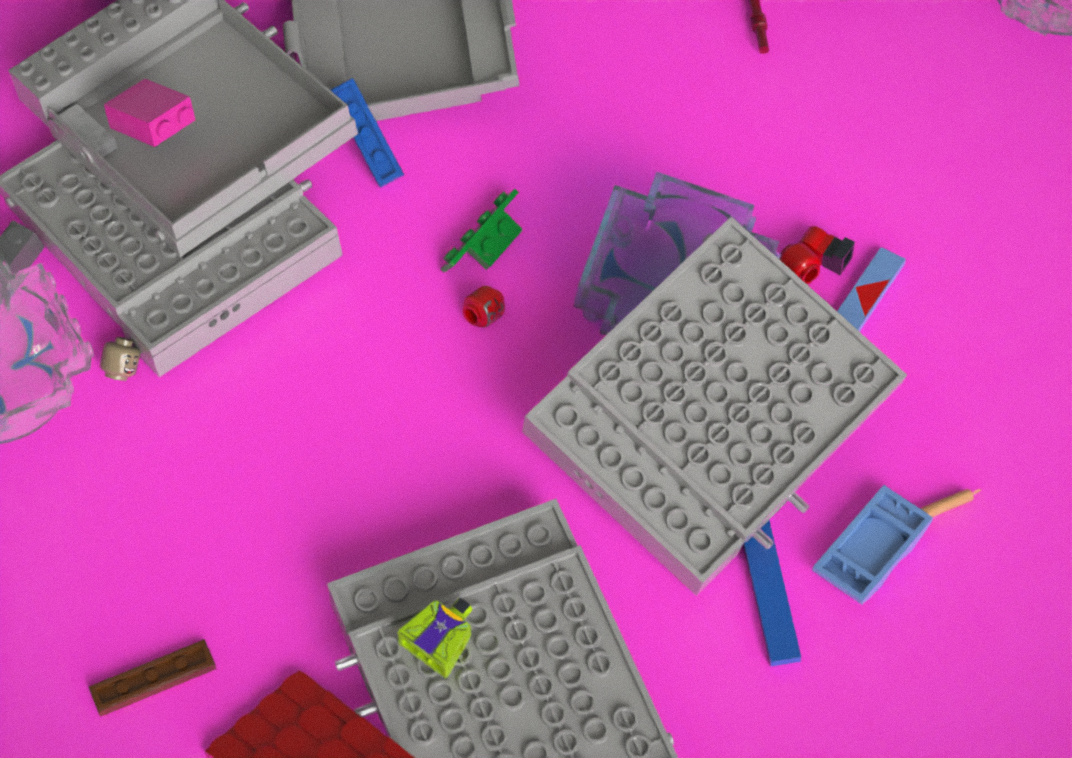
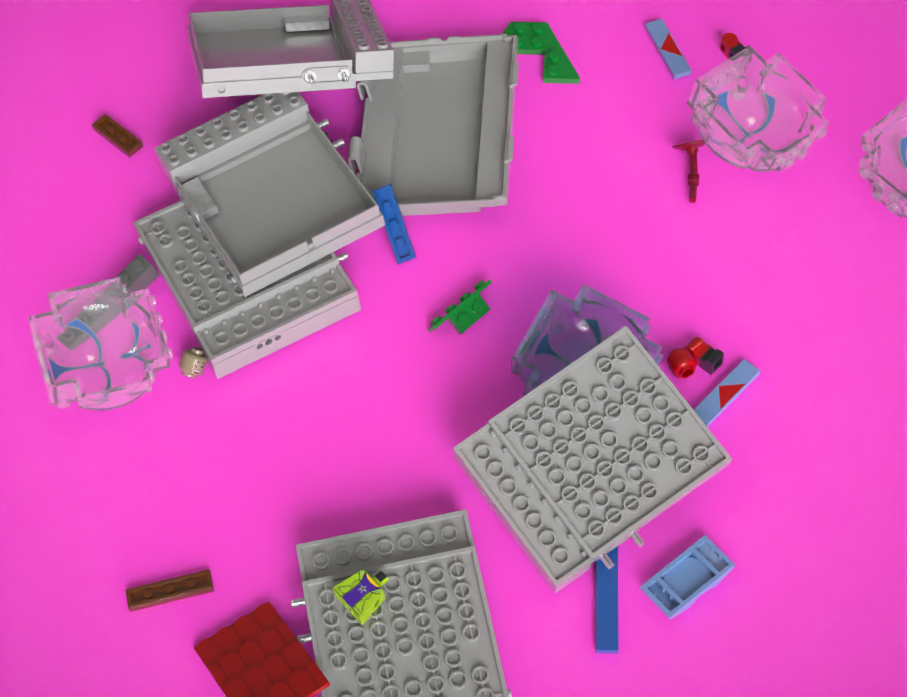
camera: 15 degrees right, 0 degrees up
(149, 112) = (242, 191): dark pink brick -> none
(483, 306) = (450, 361): red head -> none
(949, 502) = (750, 555): light nougat piece -> none

